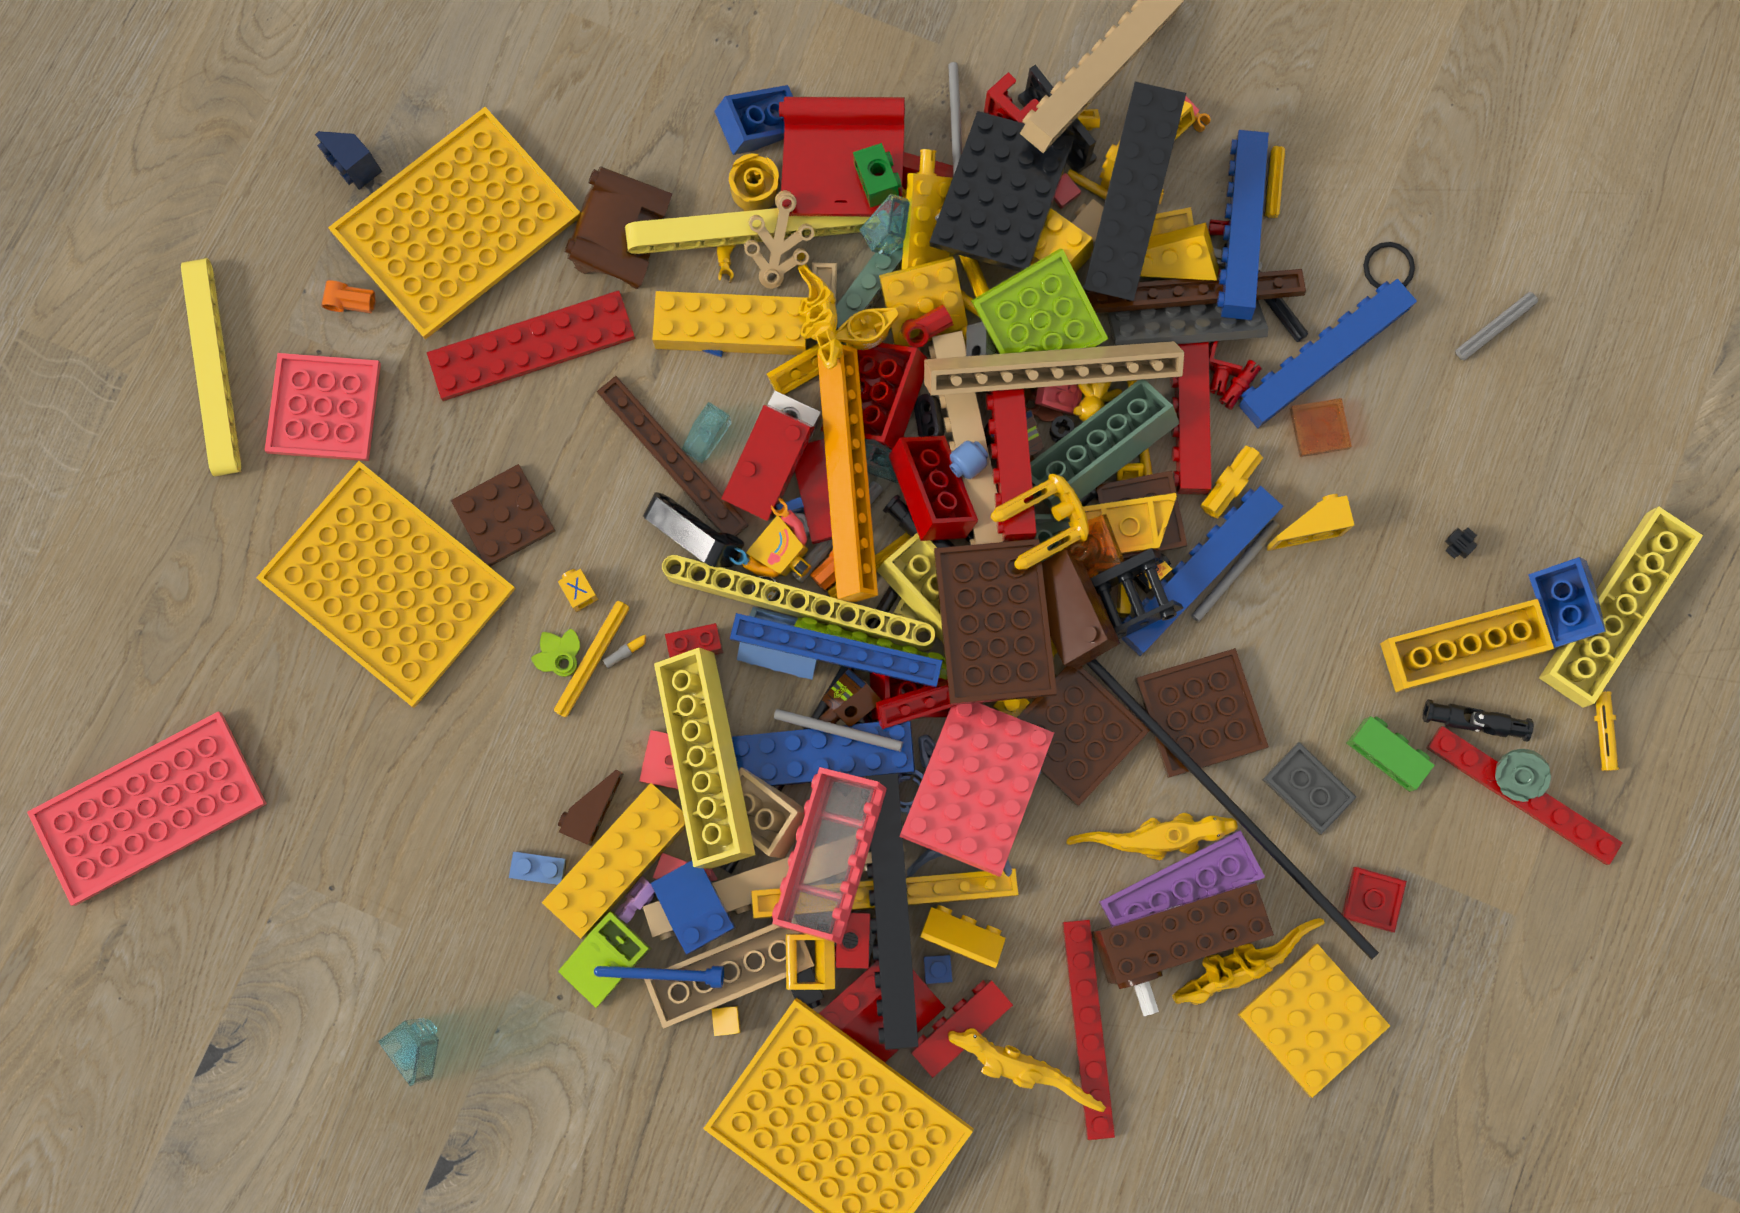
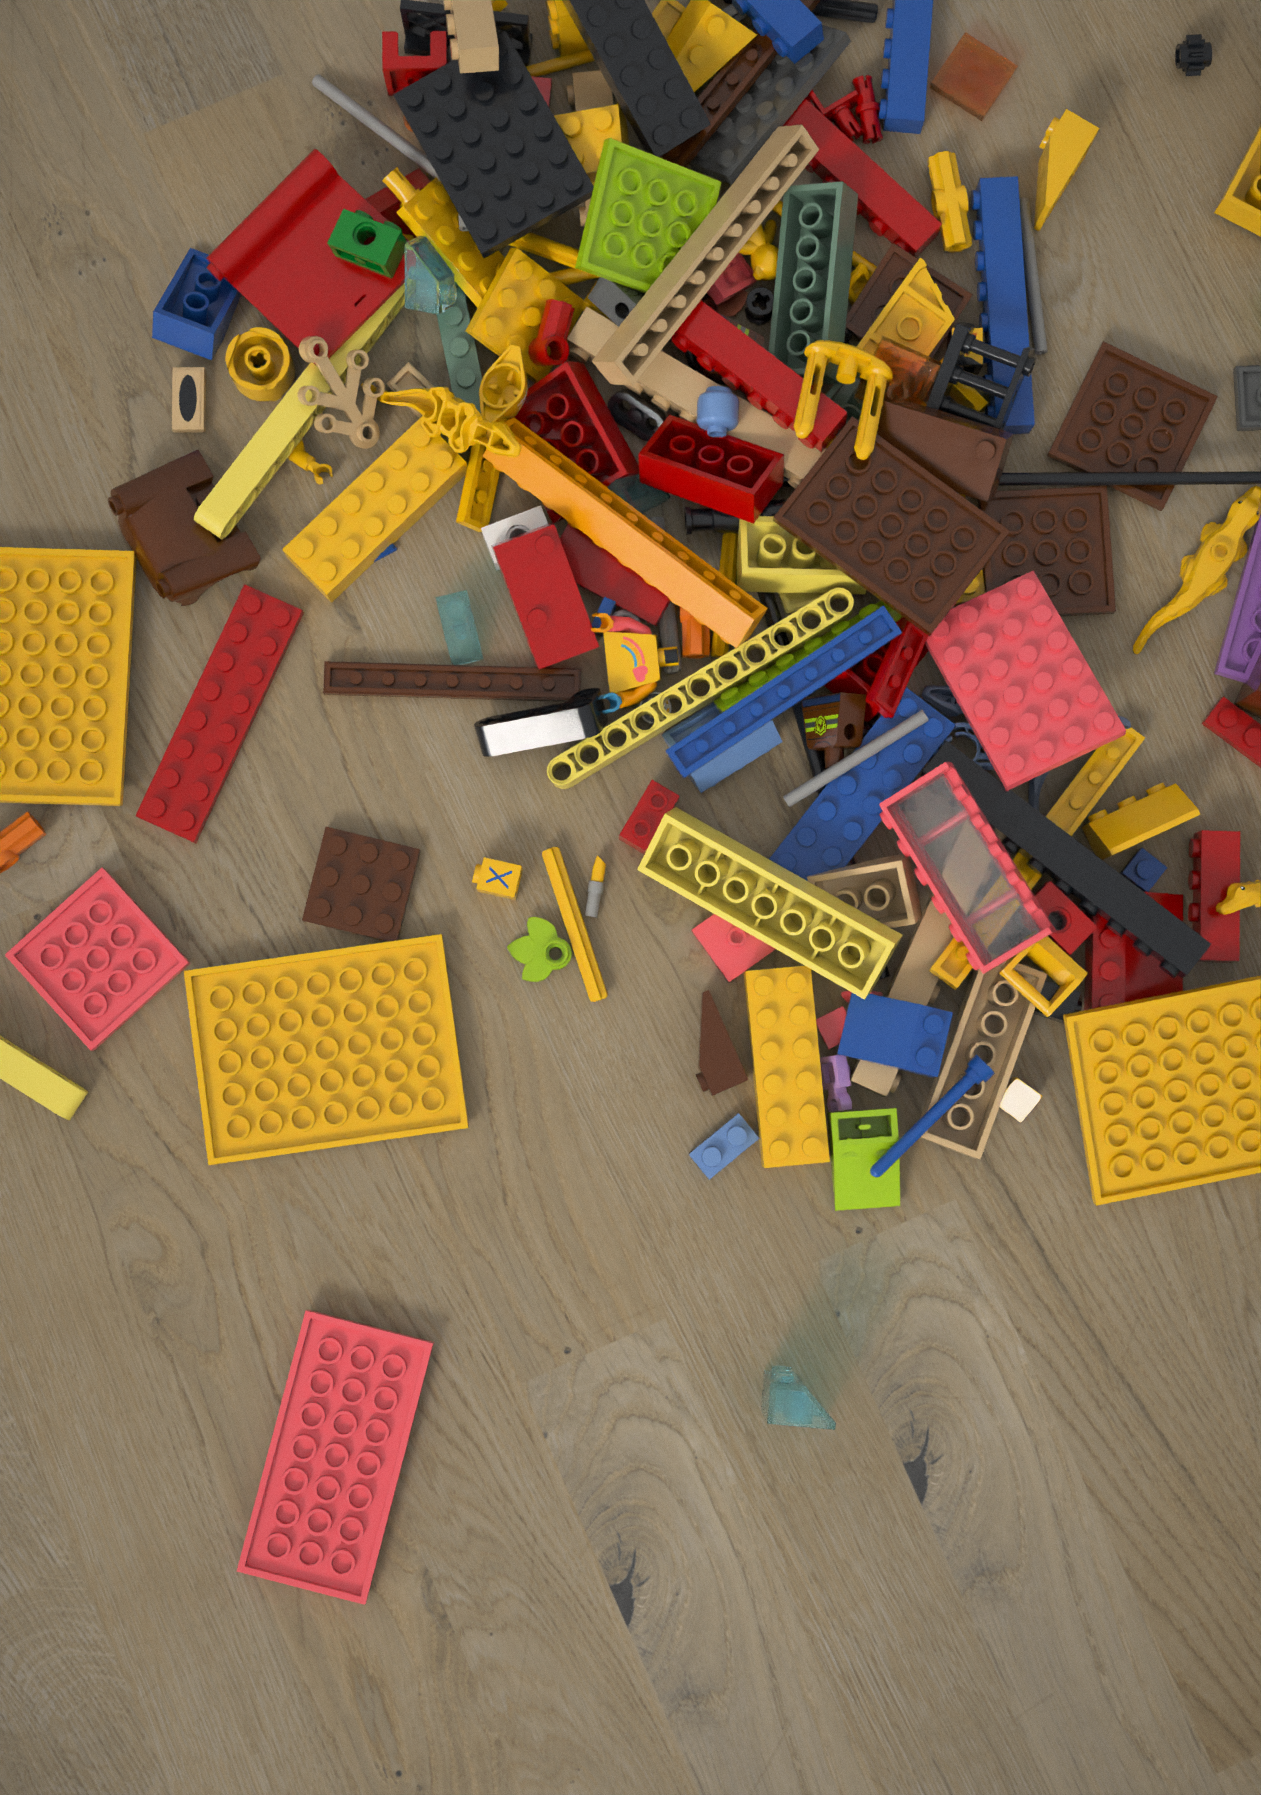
camera: 50 degrees left, 5 degrees up
(698, 163) = (188, 399): none -> tan tile

